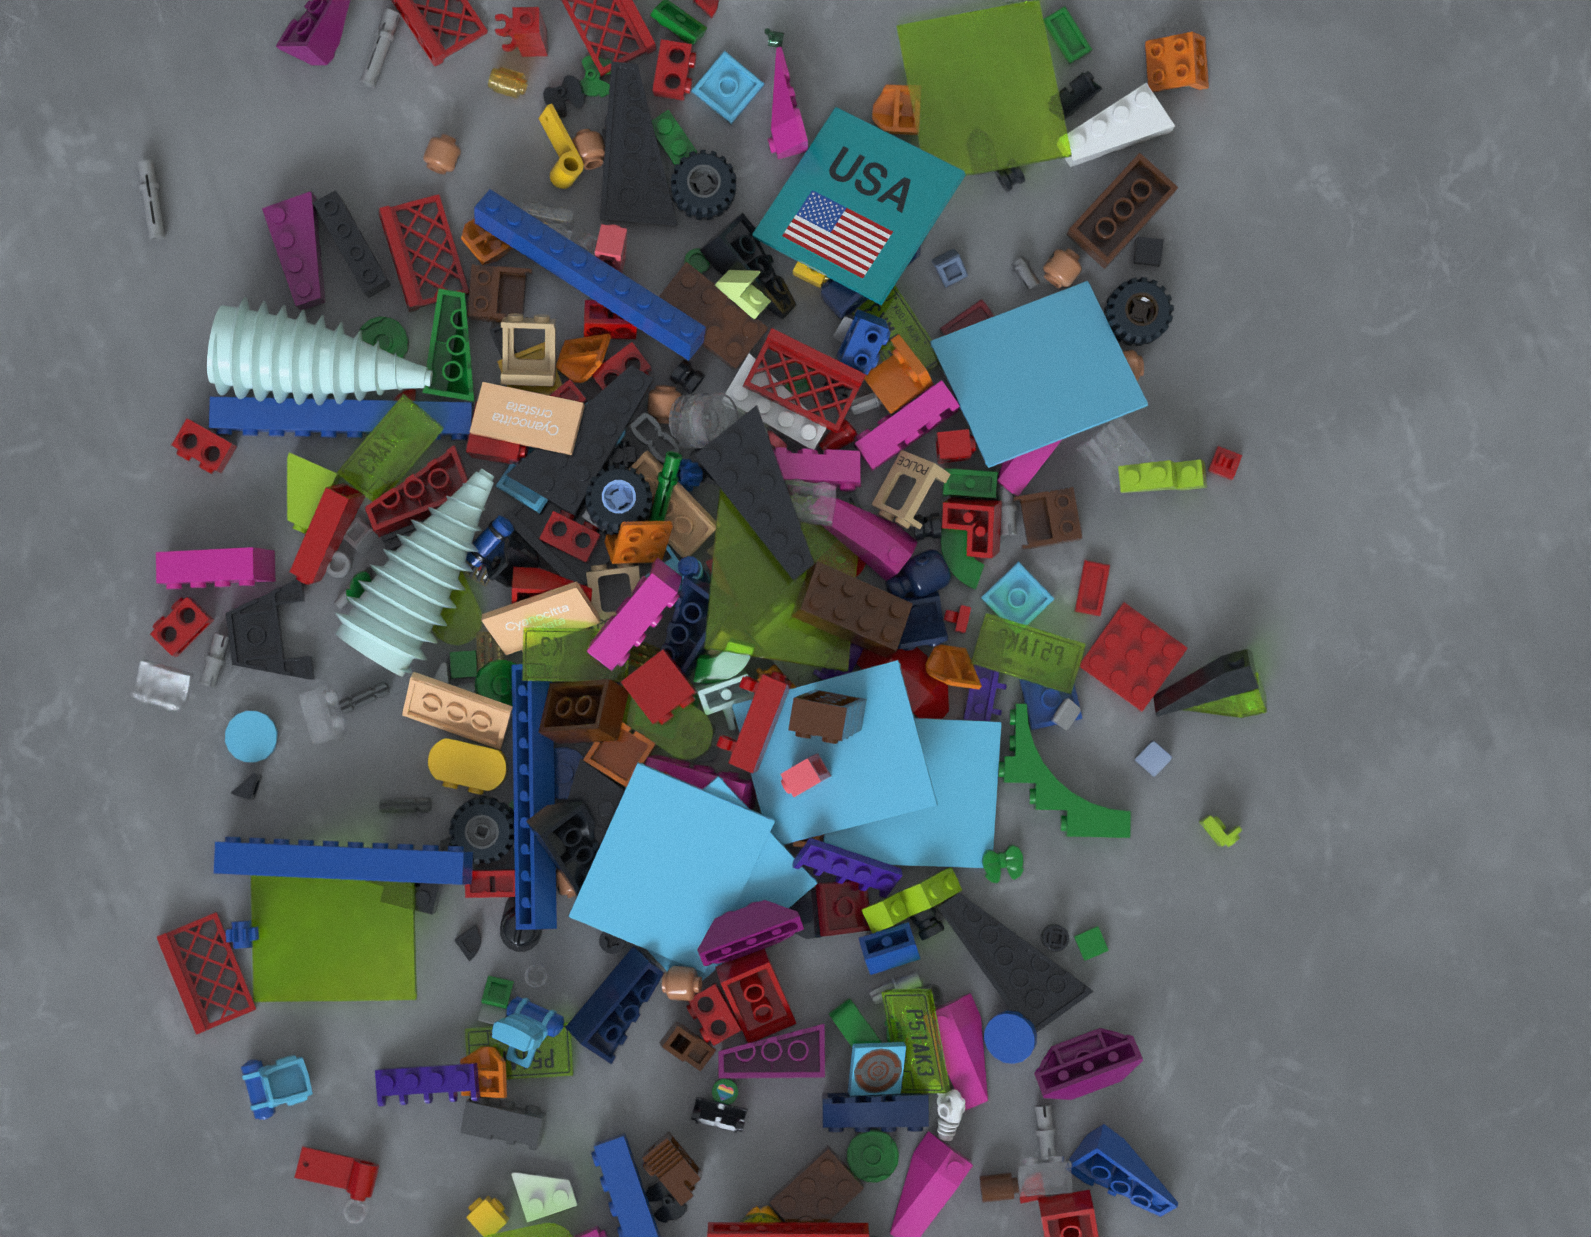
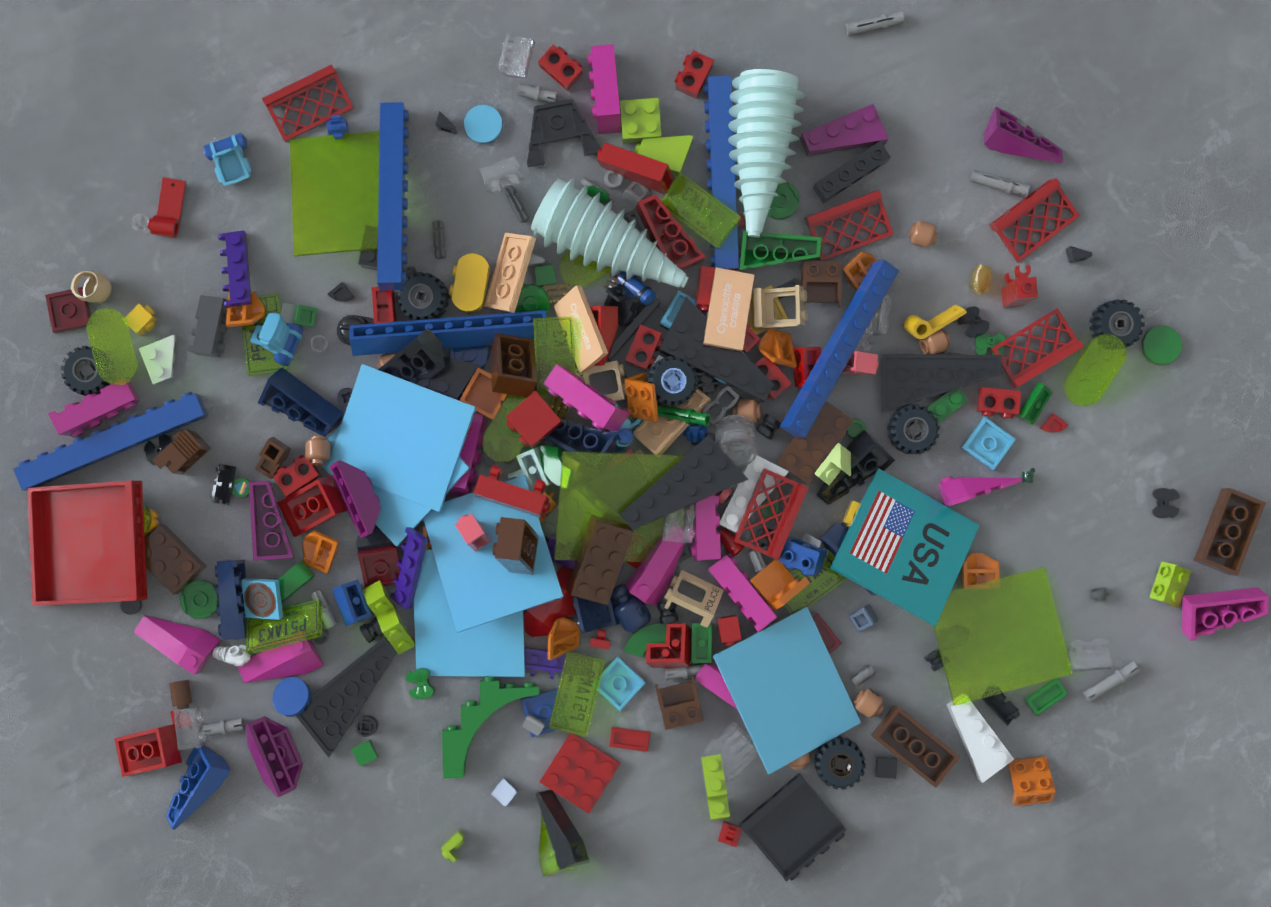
camera: 85 degrees right, 0 degrees up
(261, 522) = (640, 119): none -> lime brick
(817, 989) = (319, 551): none -> orange slope
(1220, 379) = (793, 827): none -> black panel

